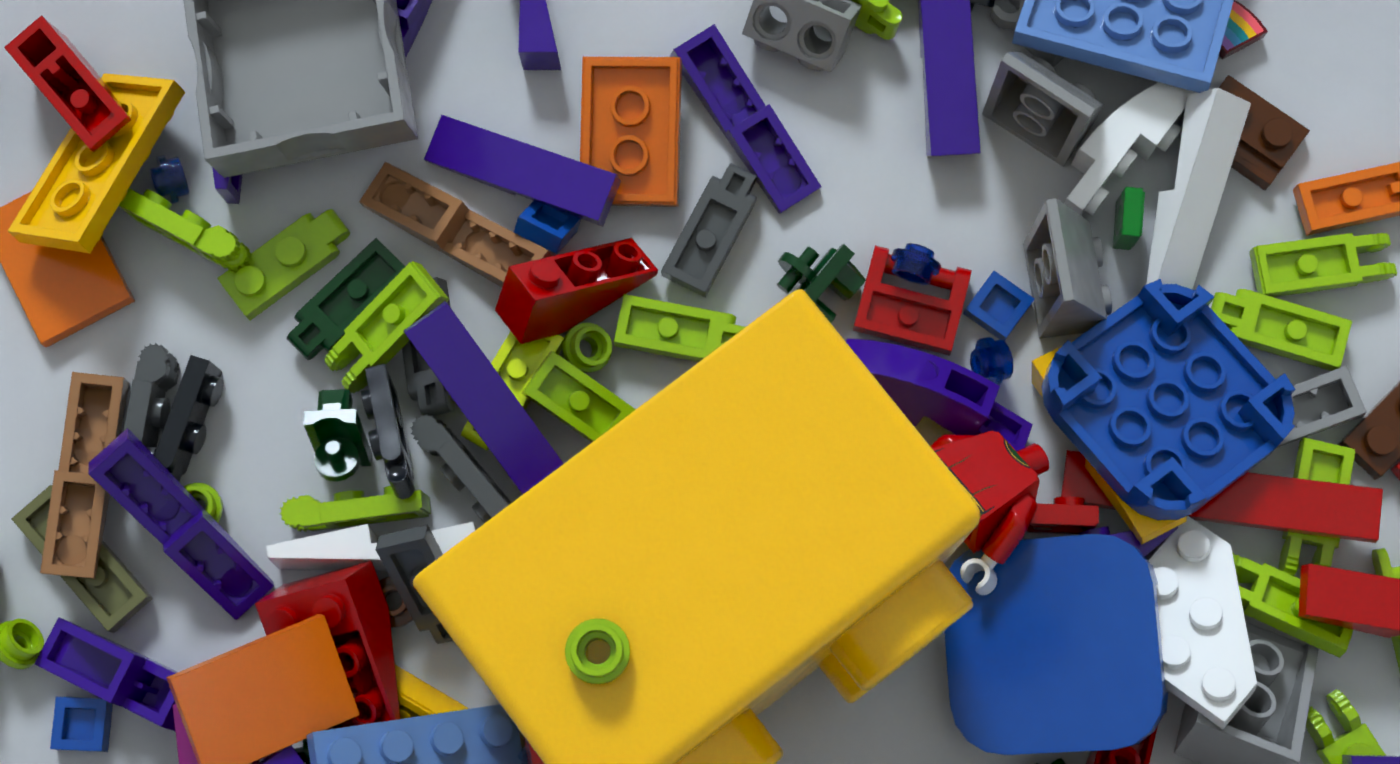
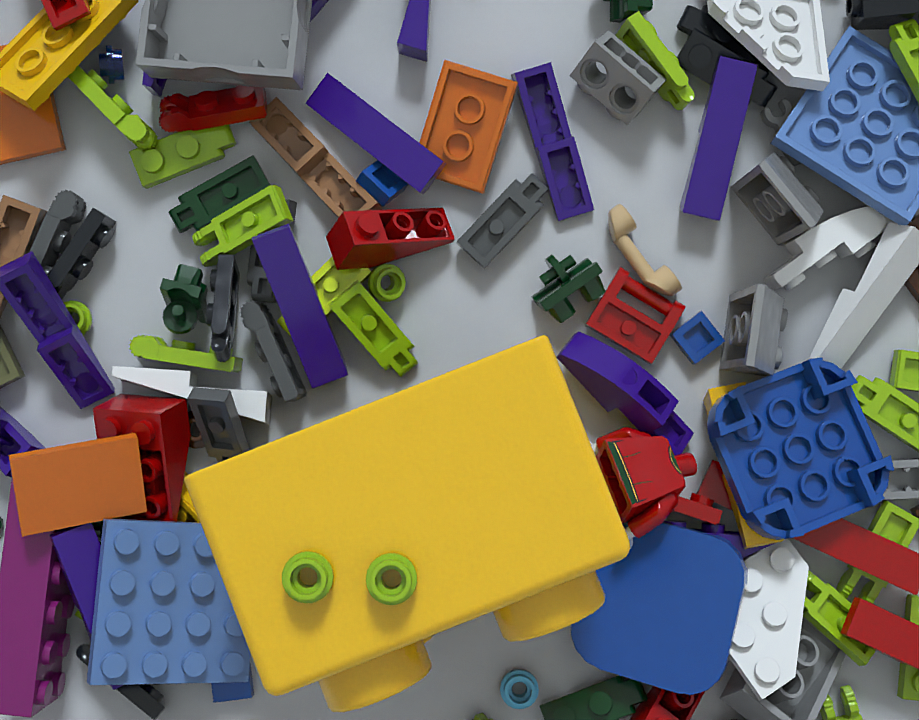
camera: 10 degrees right, 10 degrees up
(310, 196) = (212, 108): none -> red hinge
(672, 328) = (458, 290): lime hinge -> none
(700, 603) = (384, 593): none -> lime plate
(862, 192) = (661, 280): none -> tan bar
(915, 264) = (645, 292): clear blue plate -> none
(992, 360) = (679, 378): clear blue plate -> none
(1128, 218) = (813, 300): green tile -> none

